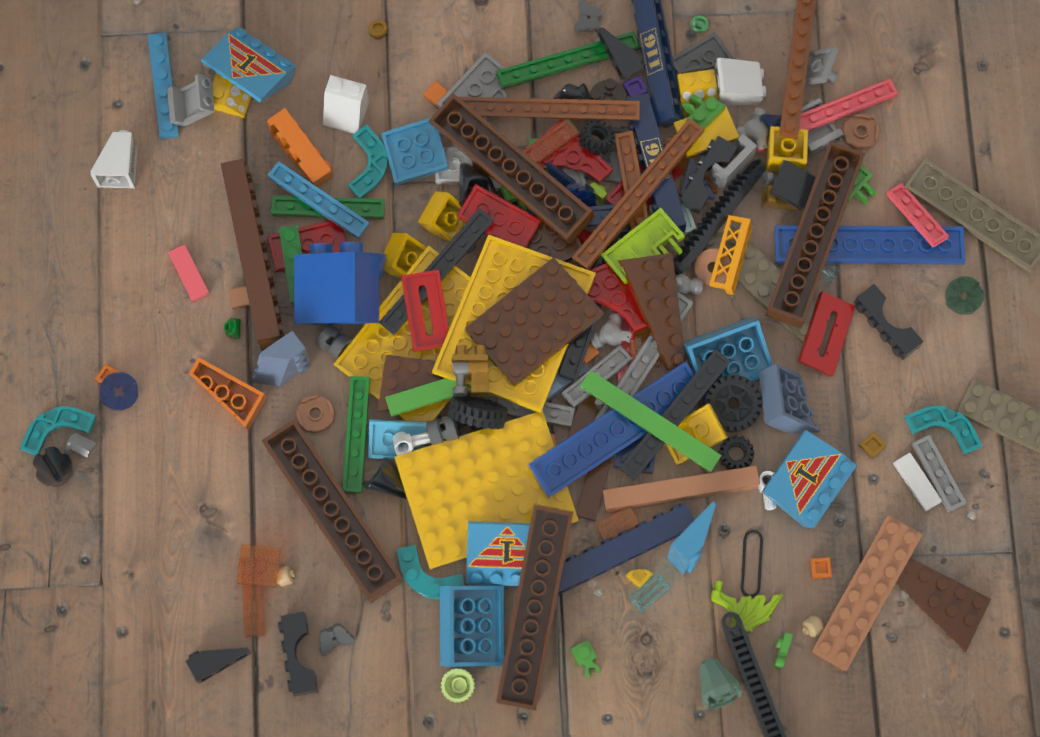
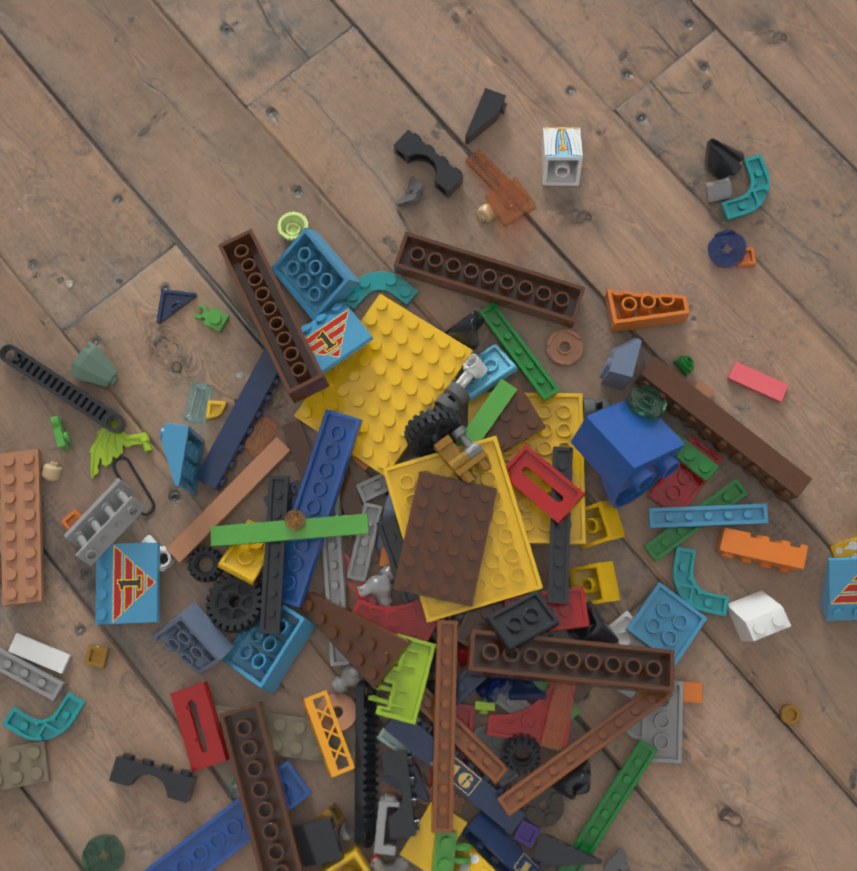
camera: 145 degrees right, 5 degrees up
(182, 573) = (561, 156): none -> white slope
(304, 308) = (637, 403): none -> clear green plate
(523, 218) = (522, 621): none -> black tile
(610, 698) = (171, 302): none -> dark blue tile
(640, 422) = (295, 520): none -> clear orange tile
(794, 557) = (97, 514): none -> light grey fence

